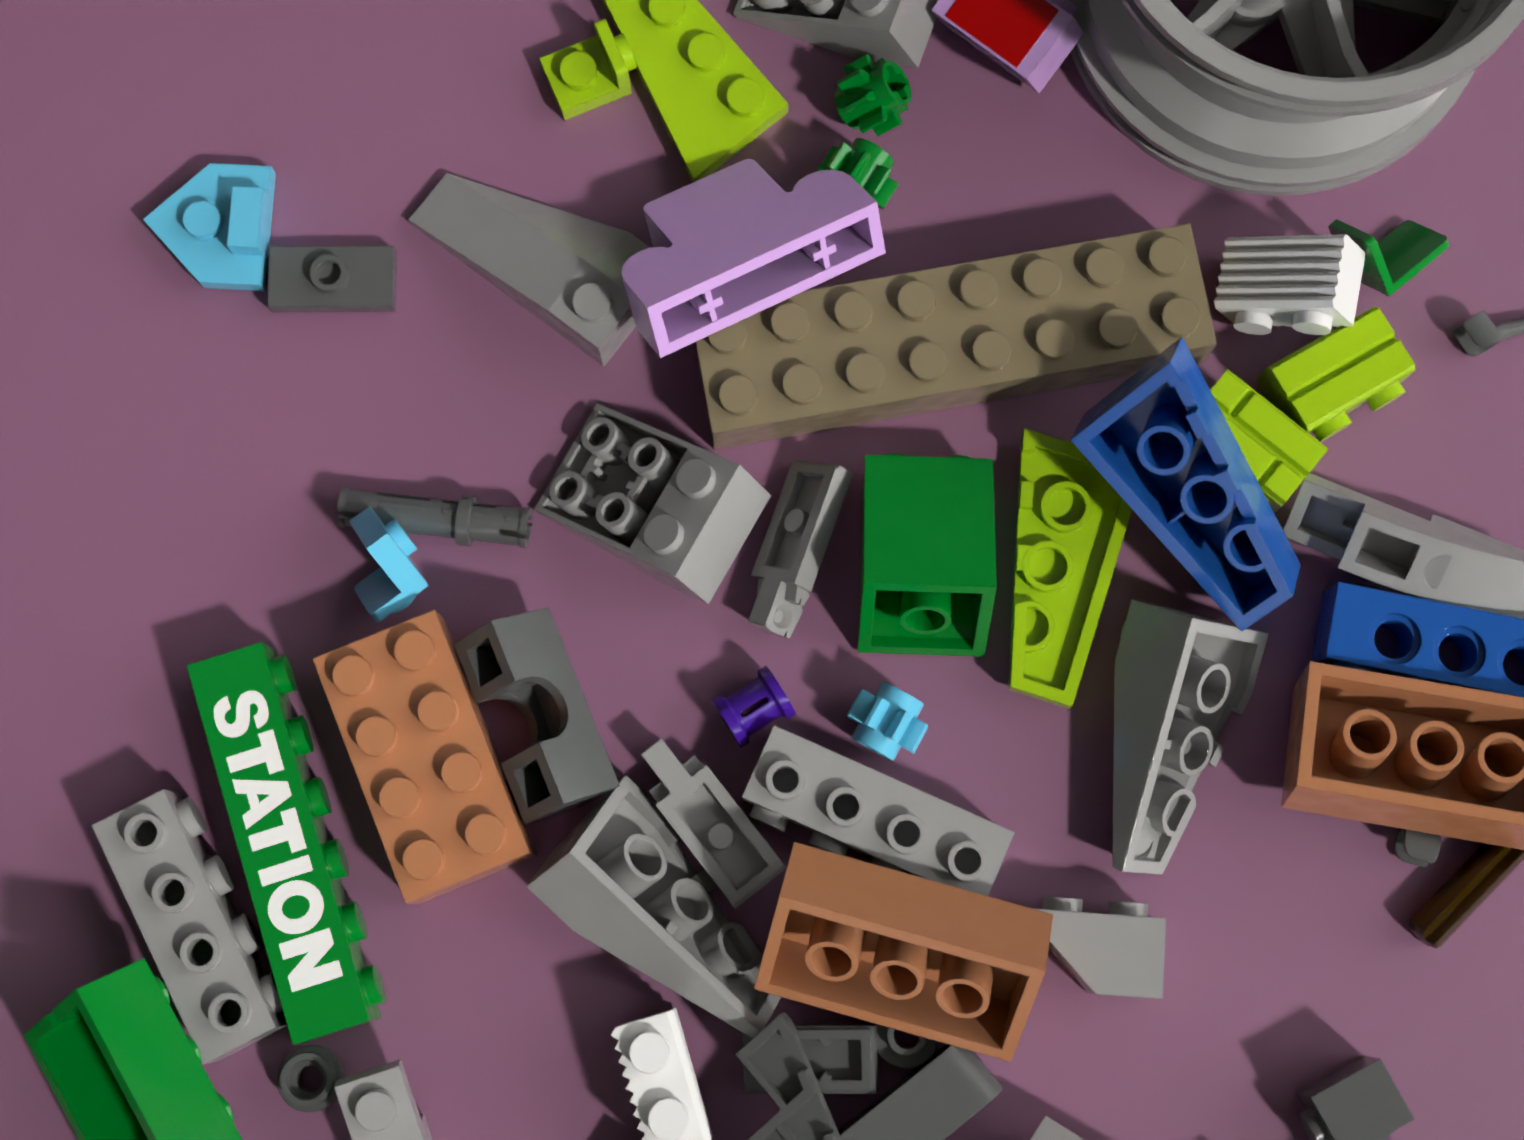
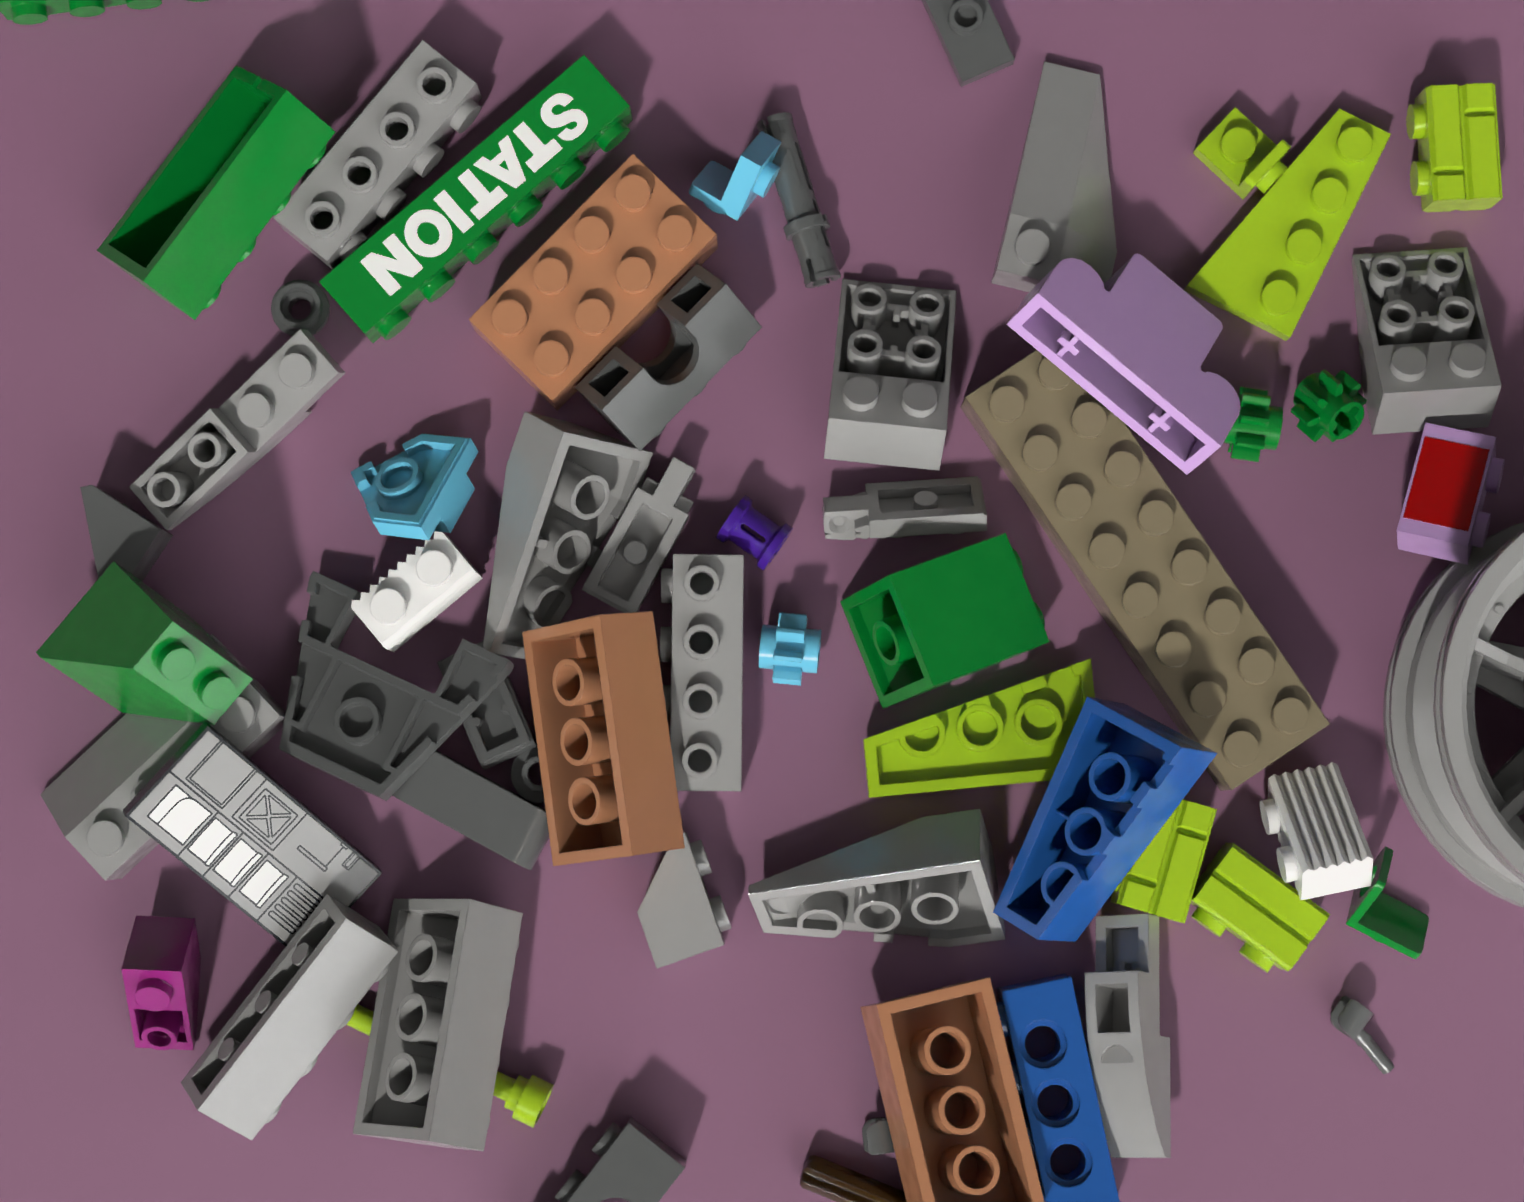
camera: 65 degrees right, 5 degrees up
(554, 1033) = (419, 487): none -> medium azure plate

